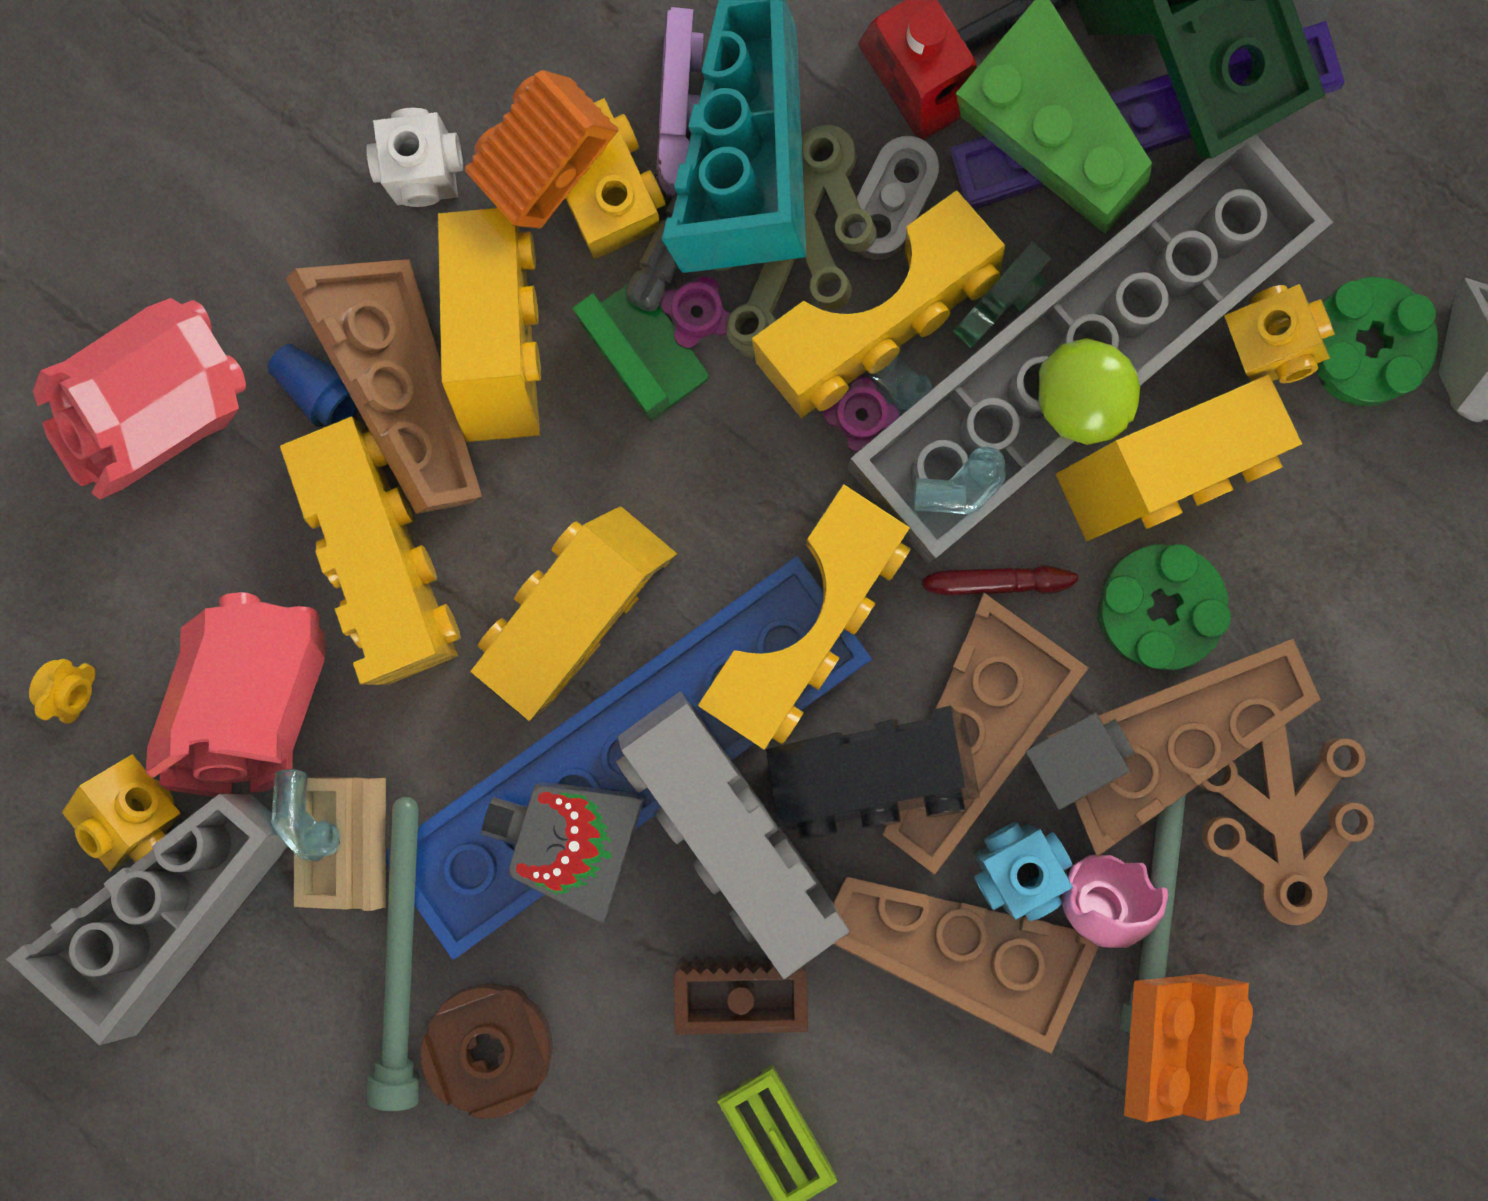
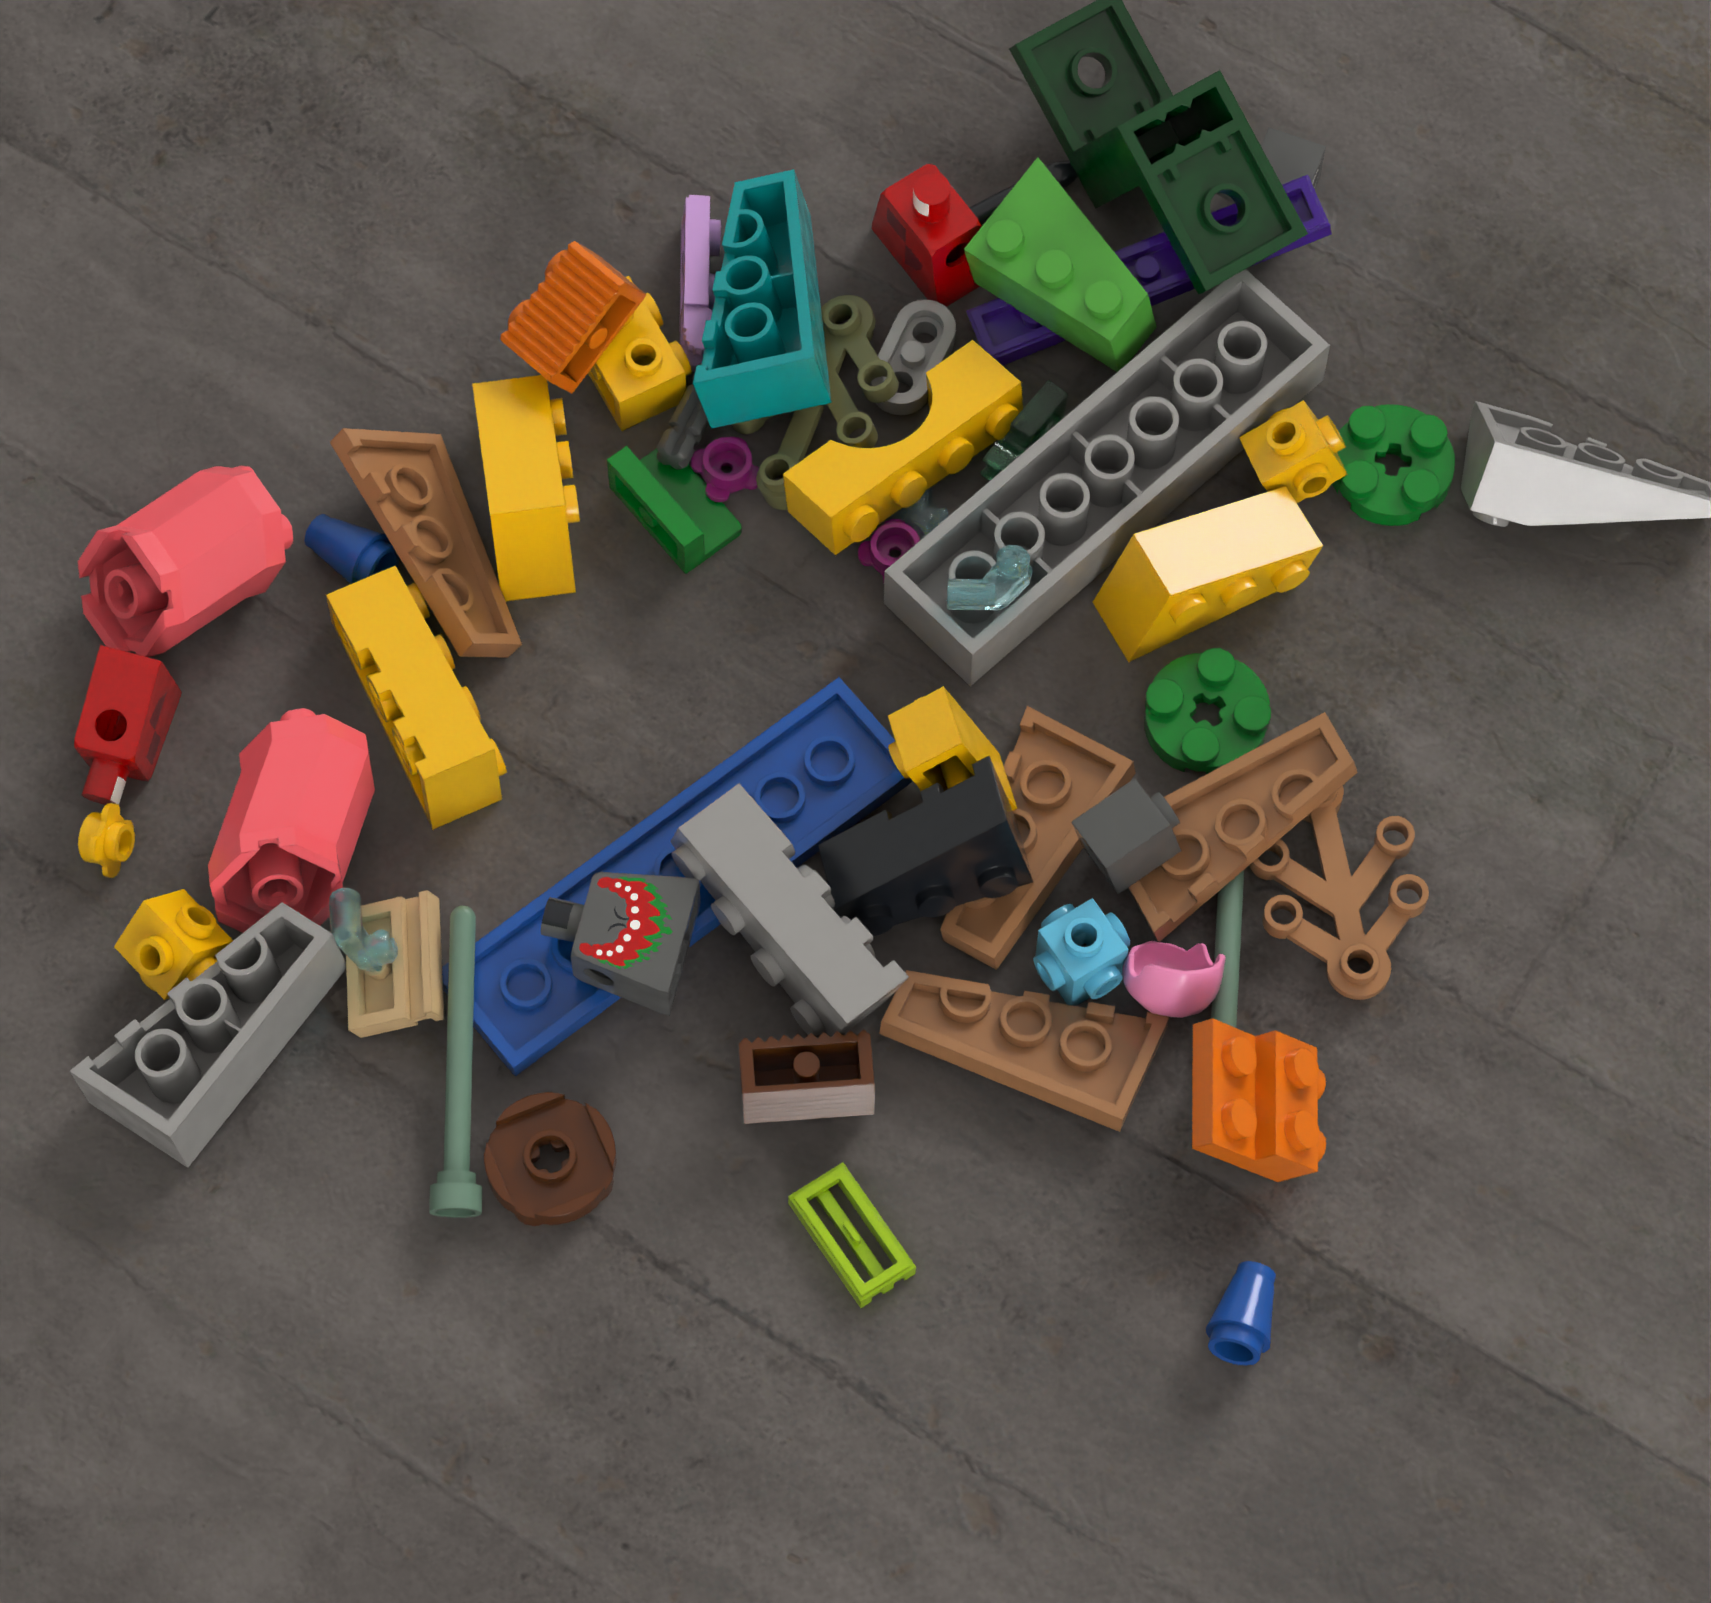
camera: 10 degrees left, 20 degrees down
(74, 571) = (124, 721): none -> red torso
(427, 173) = (446, 341): white brick -> none
(569, 609) = (614, 735): yellow wedge -> none
(851, 548) = (811, 784): yellow arch -> none
(902, 668) = (940, 743): none -> yellow brick
(1043, 579) = (1043, 697): dark red piece -> none
(1088, 391) = (1106, 496): lime hair -> none

